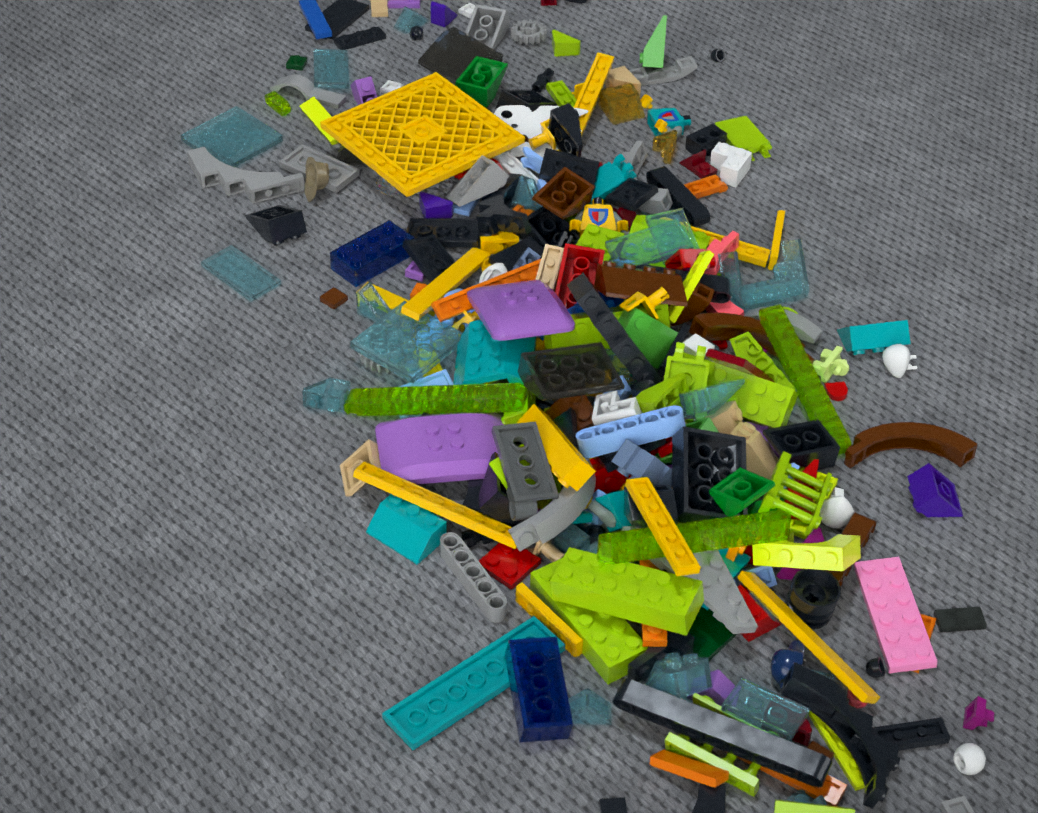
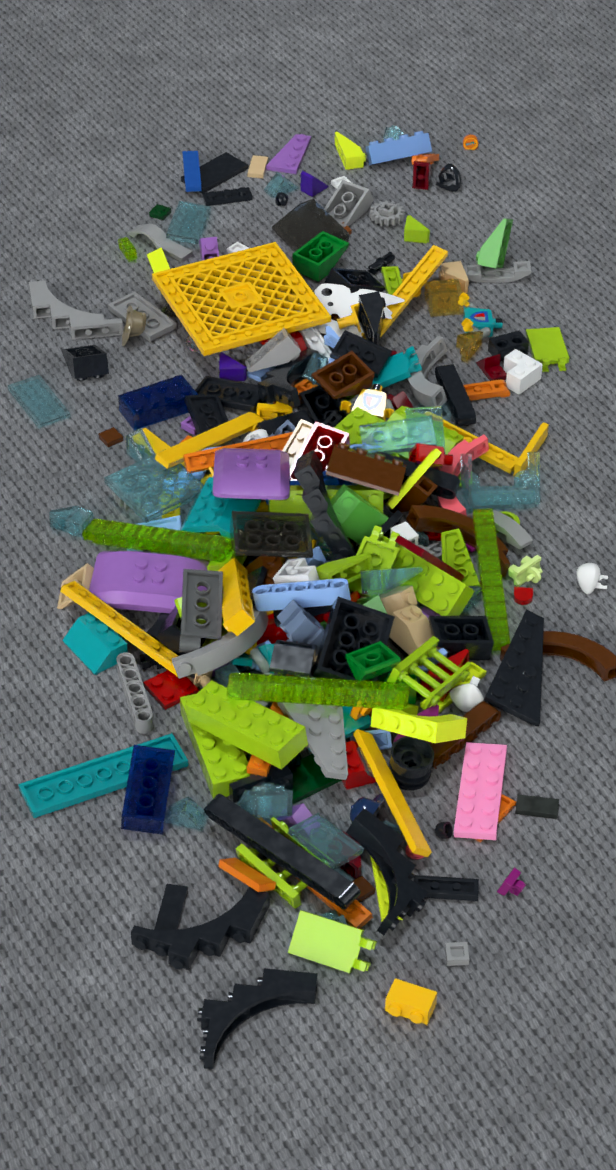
camera: 15 degrees right, 0 degrees up
(233, 137) = (75, 275): clear light blue plate -> none
(536, 607) = (183, 738): yellow tile -> none
(631, 194) = (409, 386): black tile -> none
(648, 302) = (362, 486): yellow bracket -> none
(662, 526) = (287, 675): yellow tile -> none
(717, 54) = (561, 261): black hinge -> none
(874, 336) = (579, 553): teal slope -> none
(878, 476) = (519, 676): none -> black wing
(934, 493) = (565, 698): dark purple slope -> none
(969, 759) = (486, 915): white piece -> none

